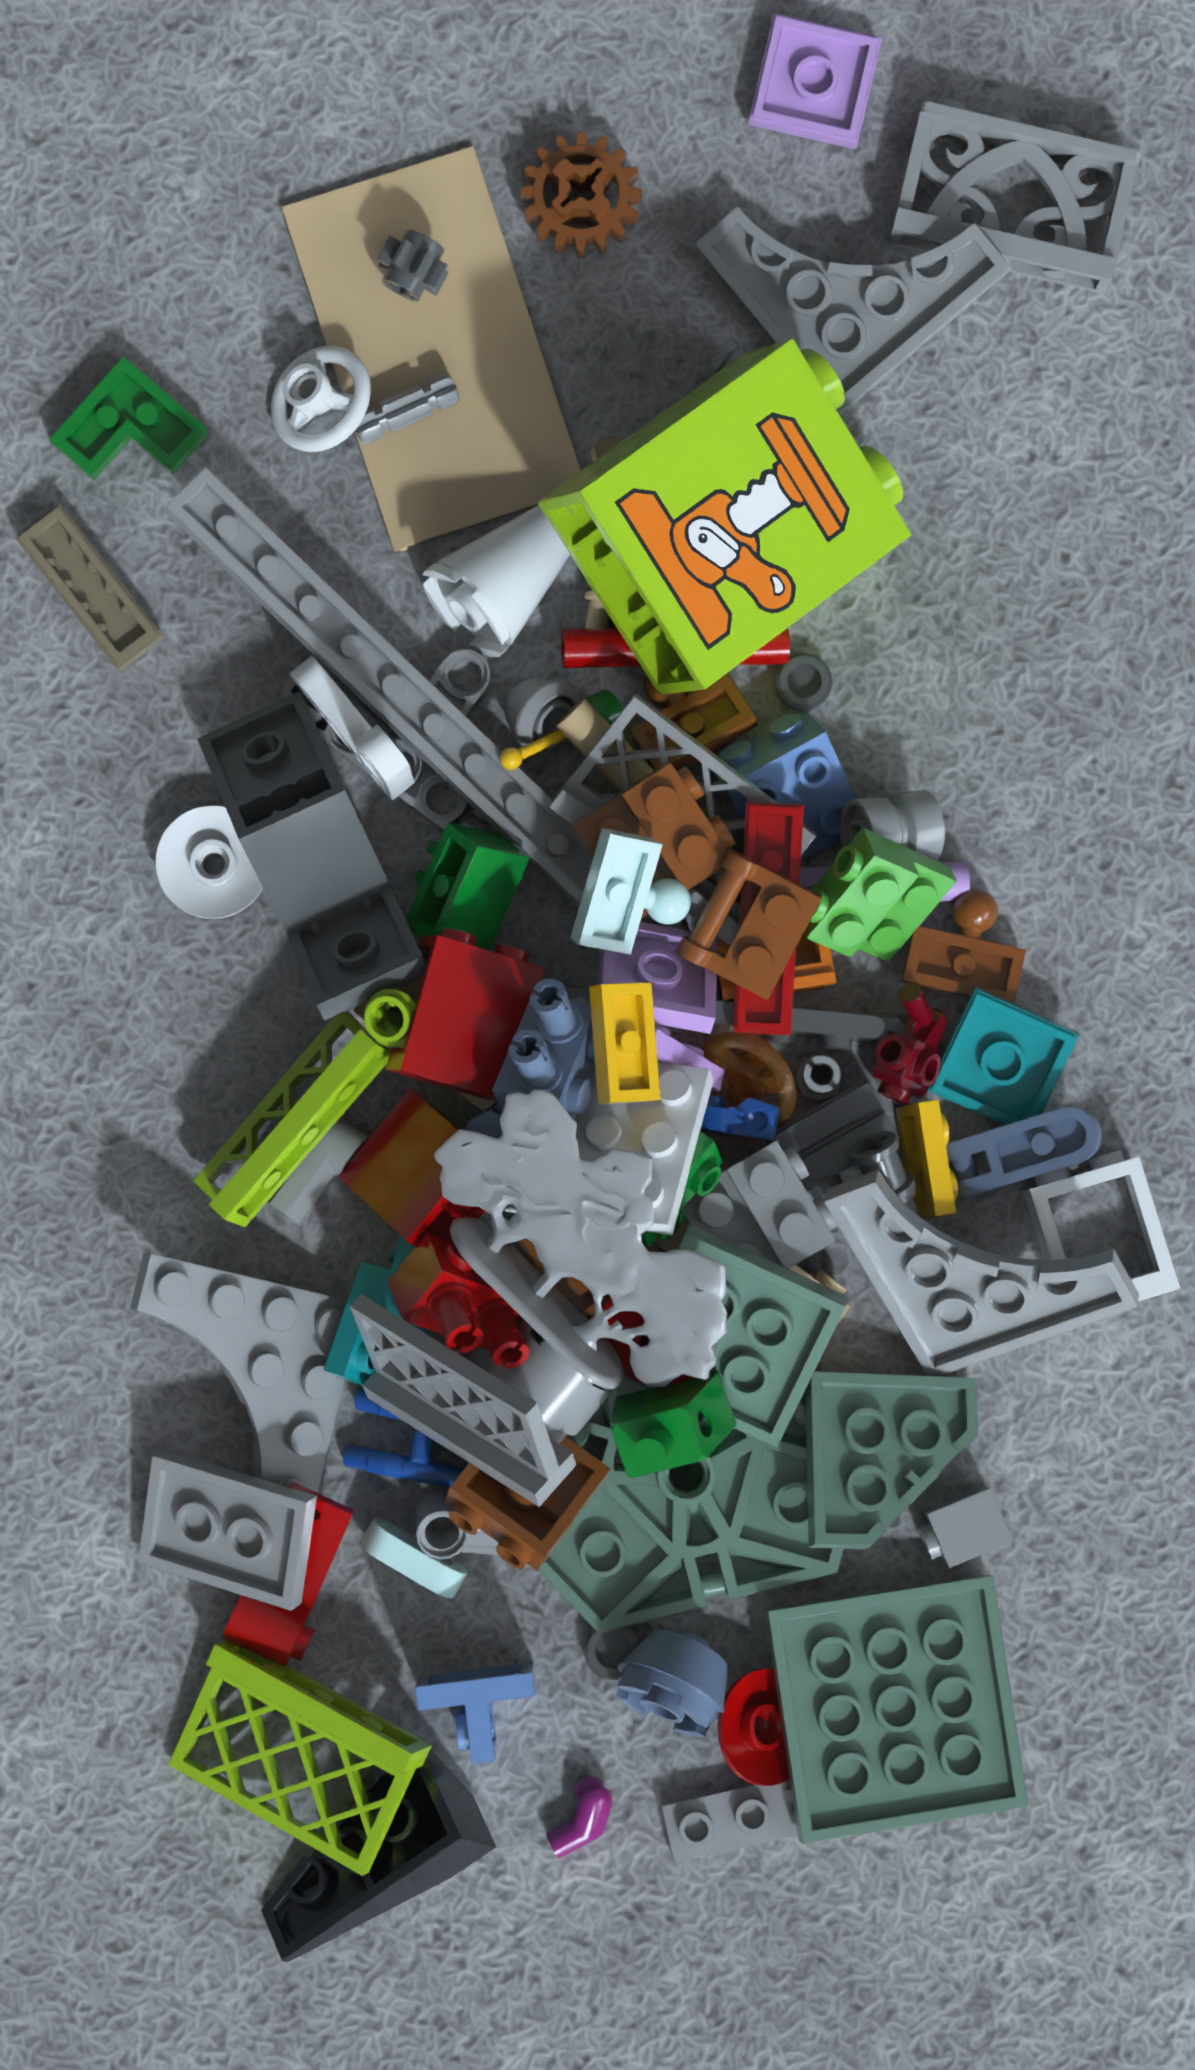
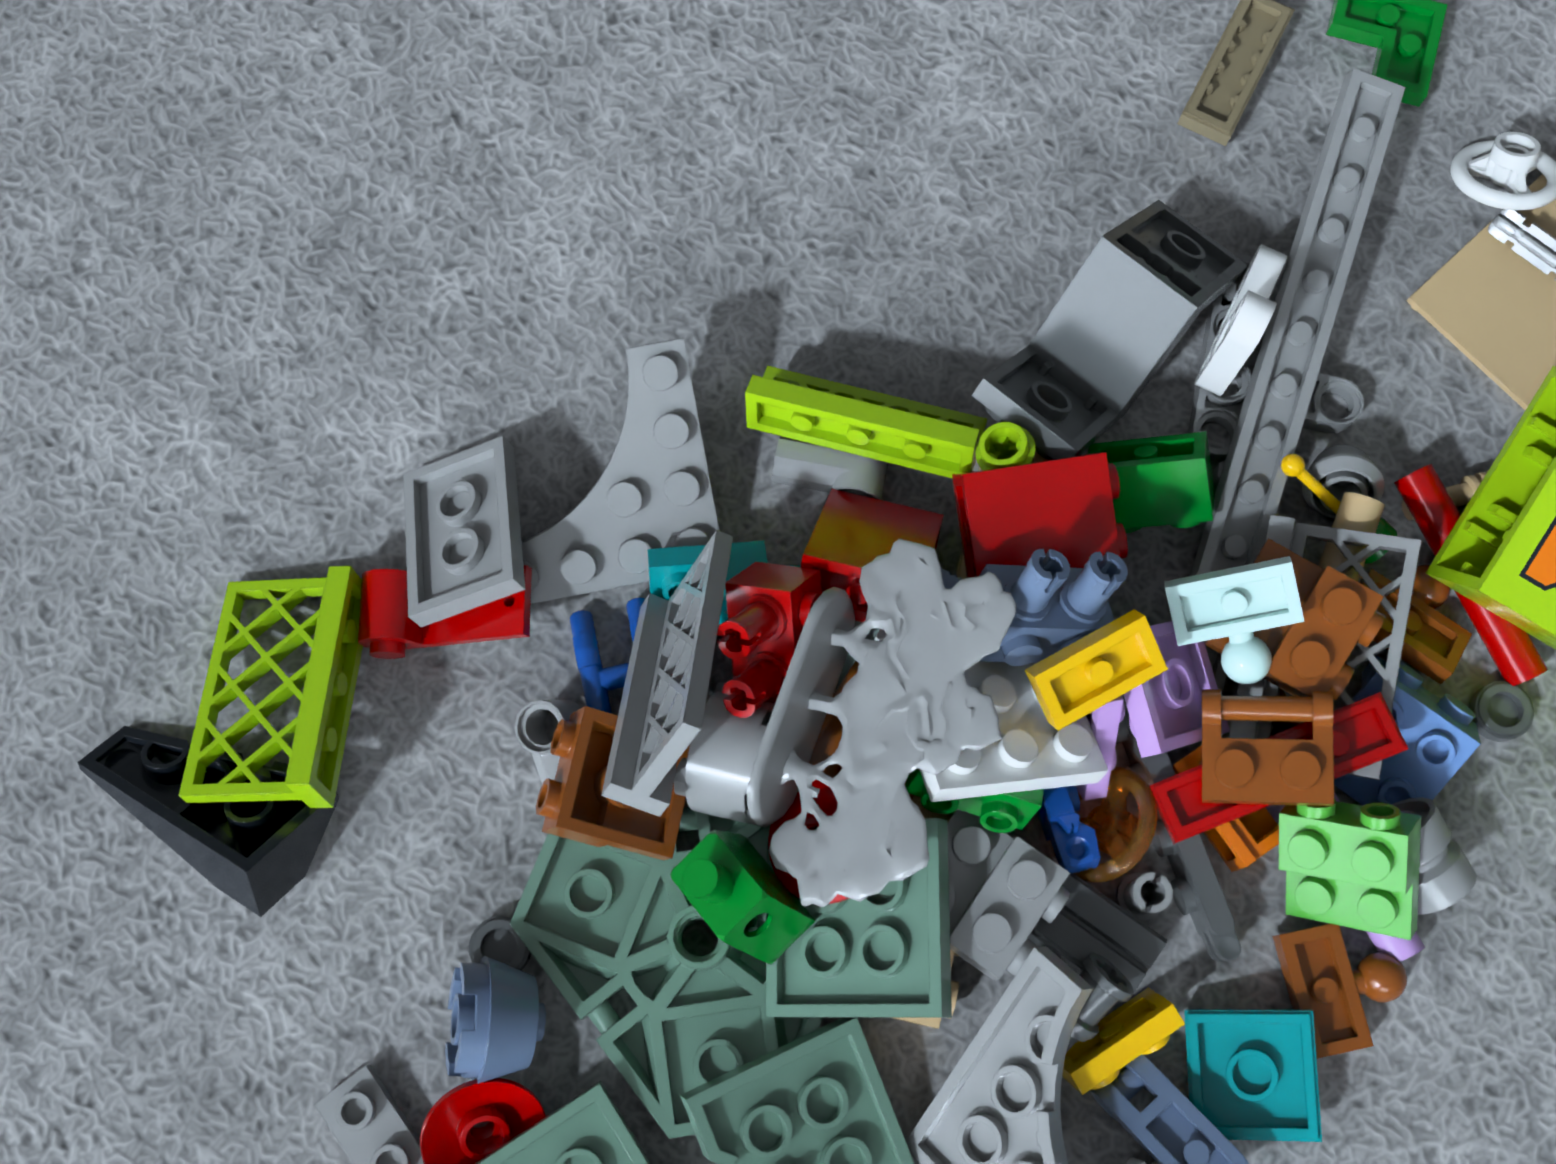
camera: 70 degrees right, 10 degrees down
(182, 859) = (1041, 241): white dish -> none
(401, 1552) = (511, 689): light aqua beam -> none
(476, 1691) = (395, 832): medium blue bracket -> none
(497, 580) = (1442, 387): white cone -> none
(589, 1818) = (326, 998): magenta arm -> none
(910, 1060) = (1206, 978): dark red piece -> none

